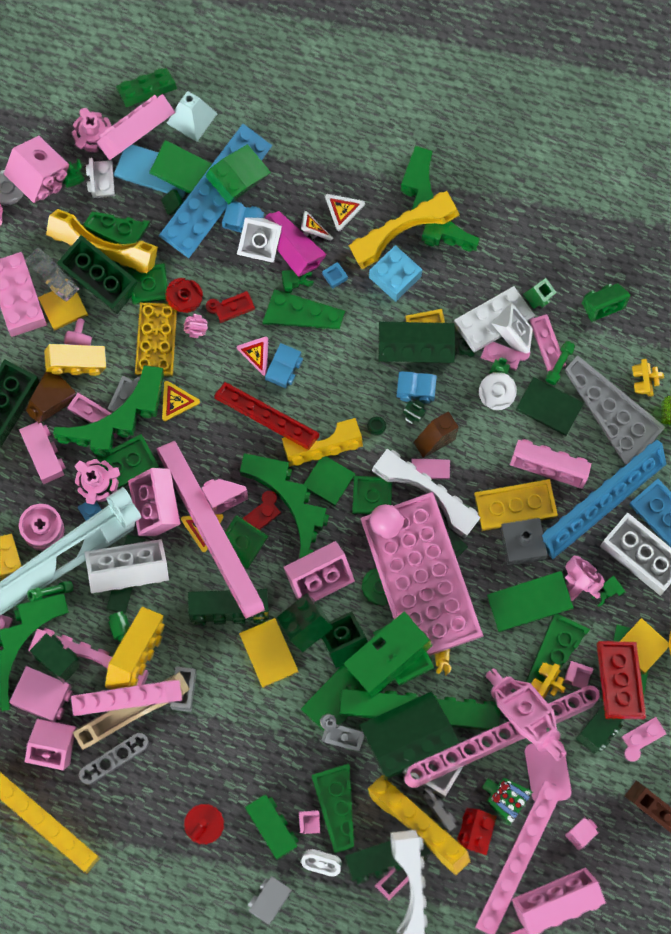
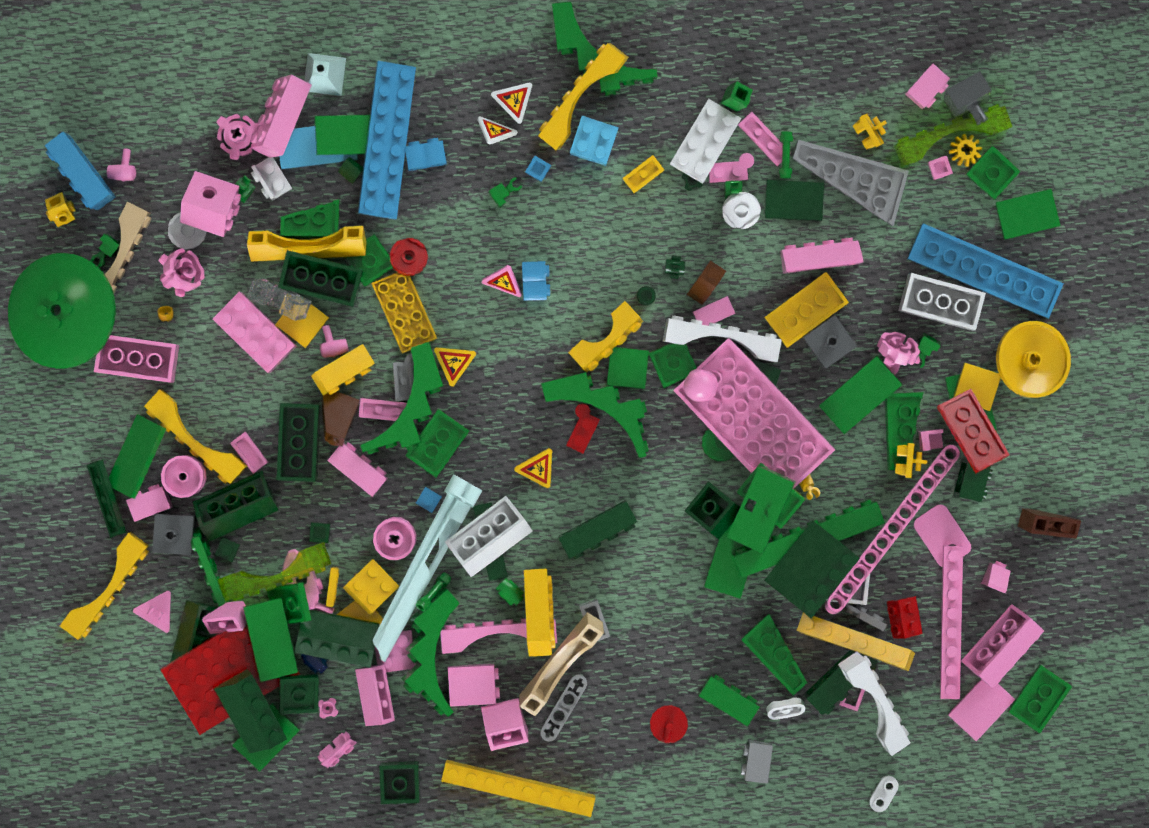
camera: 25 degrees left, 15 degrees up
(55, 658) = (473, 652): dark green brick -> none
(85, 476) = (420, 485): bright pink piece -> none
(126, 697) = (574, 650): bright pink arch -> none
(146, 87) = (267, 66): green plate -> none
(155, 500) = (484, 468): bright pink brick -> none
(195, 326) = (435, 282): bright pink gear -> none
(211, 530) = (547, 470): bright pink beam -> none
(224, 494) = (541, 432): bright pink slope -> none
(230, 307) = (457, 247): red hinge -> none
(237, 173) = (401, 115): green slope -> none
(245, 540) = (578, 463): green tile -> none
(259, 239) = (453, 171): white slope -> none
(267, 415) = (543, 337): red tile -> none
(268, 652) = (651, 550): yellow tile -> none
(295, 246) = (484, 159): dark pink slope -> none
(297, 311) = (521, 220): green wing -> none
(304, 622) = (672, 512): dark green brick -> none
(309, 822) = (758, 680): bright pink panel -> none
(320, 572) = (663, 462): bright pink brick -> none
(339, 734) = (750, 593): light grey hinge -> none
(416, 342) = (646, 200): dark green slope -> none
(416, 386) = (665, 241): dark azure brick -> none
(506, 798) = (918, 577): torso -> none
(514, 329) = (730, 144): white slope -> none
(527, 712) = (903, 499): bright pink plate -> none
(604, 499) = (882, 272): dark azure plate -> none
(606, 301) = (800, 74): green slope -> none
(642, 737) = (1010, 466): bright pink hinge -> none

